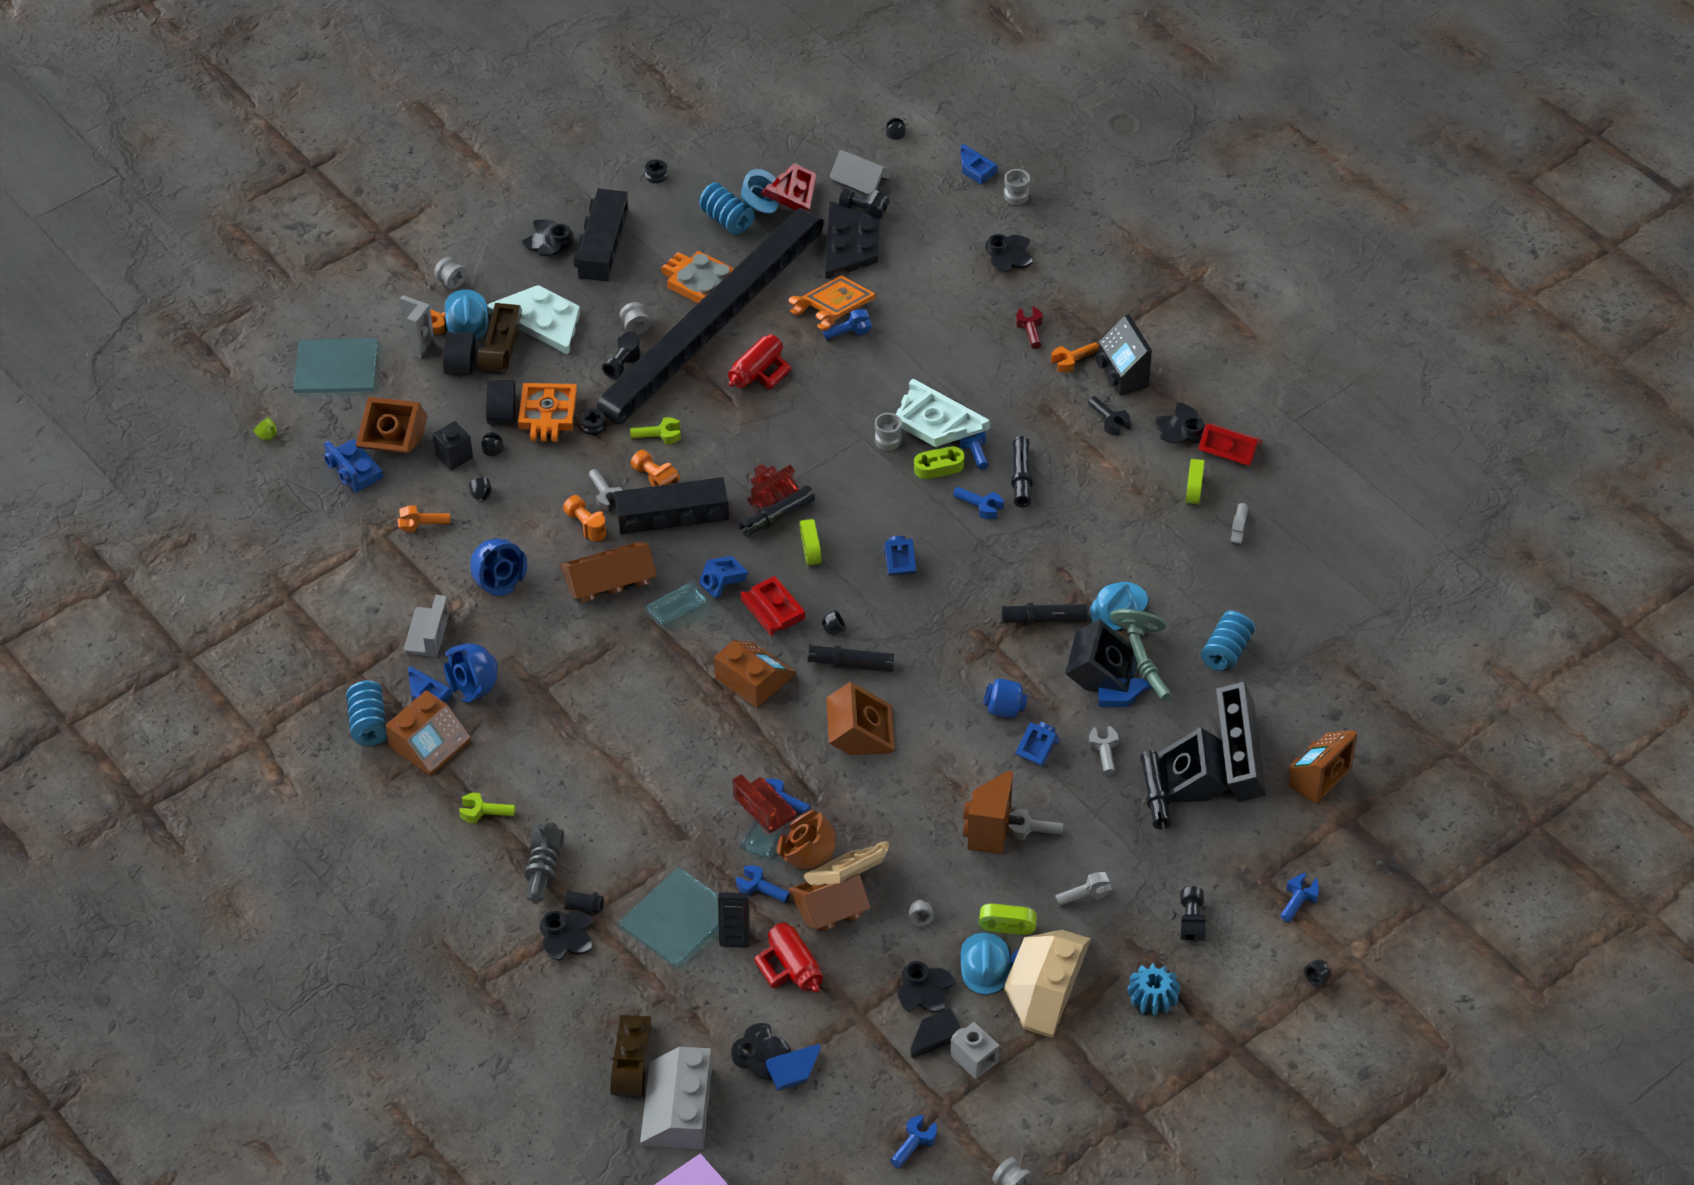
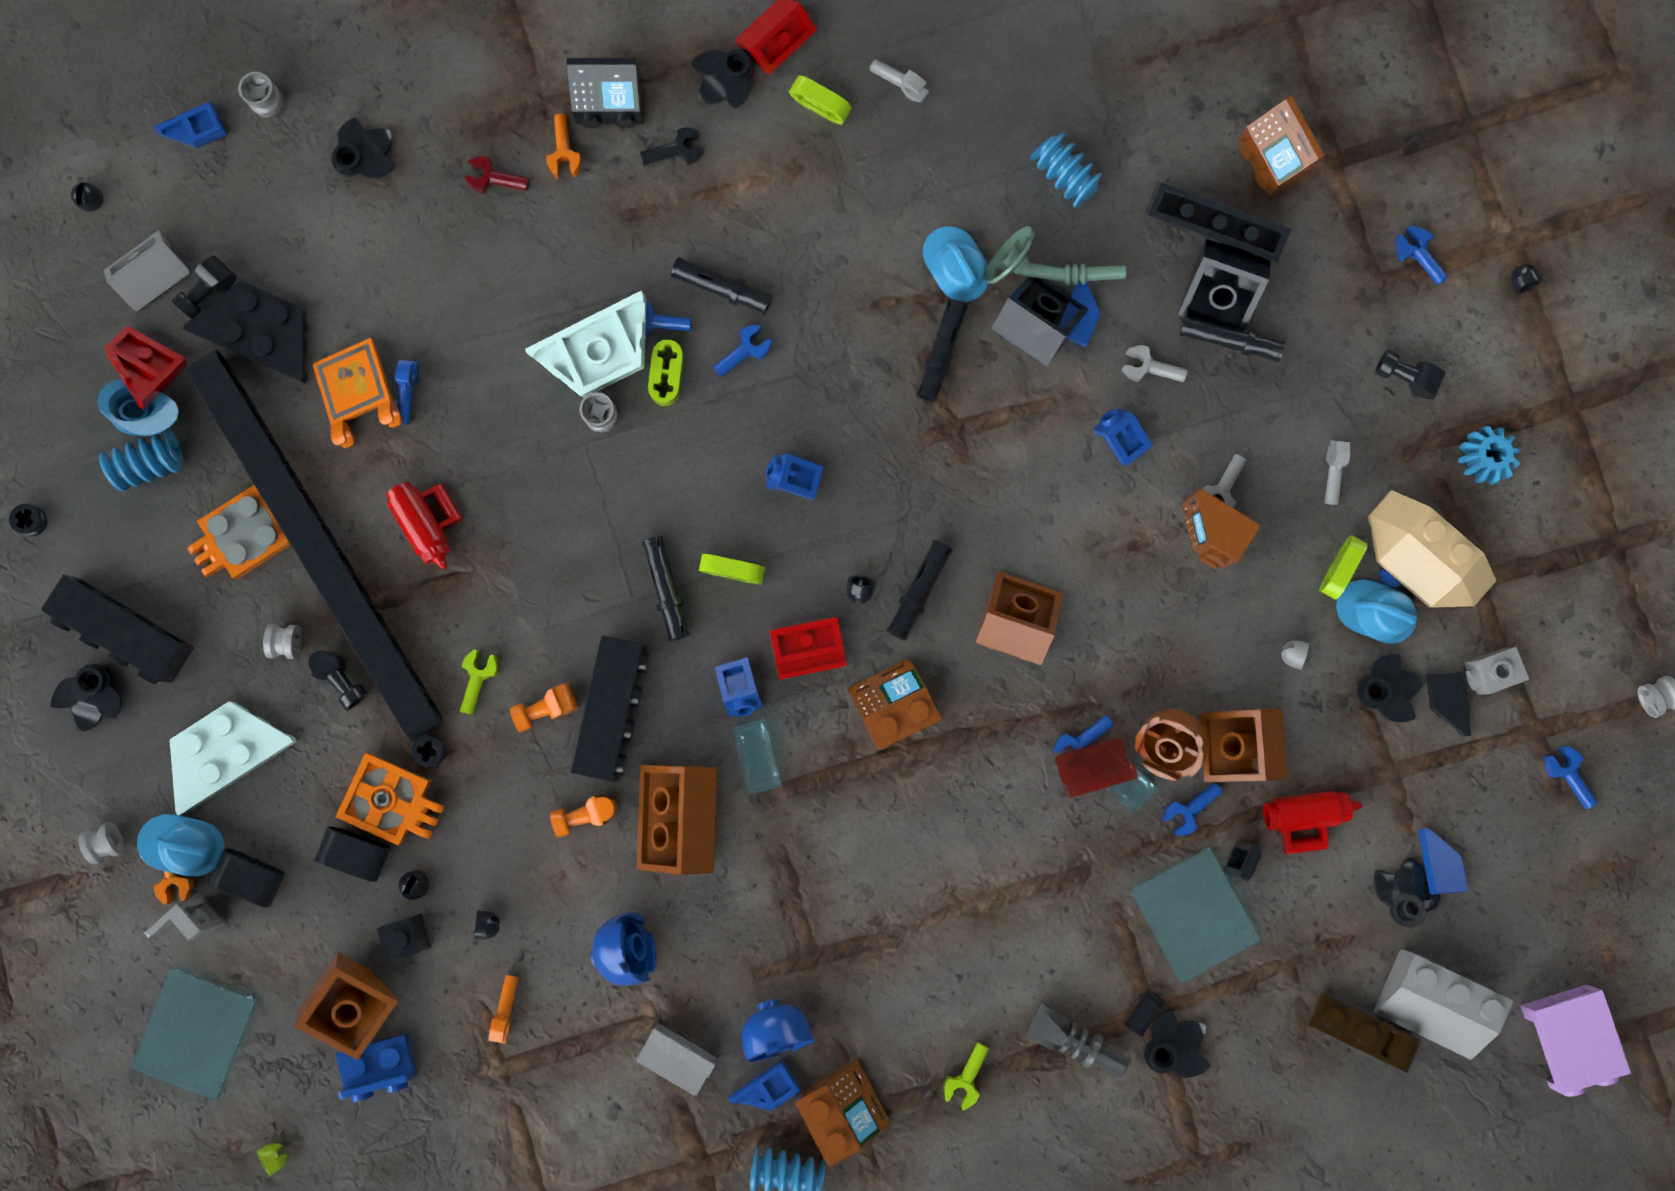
camera: 70 degrees left, 35 degrees up
(500, 338) = (247, 819): dark brown plate -> none
(606, 492) = (546, 775): light grey bar -> none
(766, 484) = (624, 566): clear red hips -> none
(847, 865) = (1223, 707): tan tile -> none
(1005, 698) = (1049, 445): blue head -> none

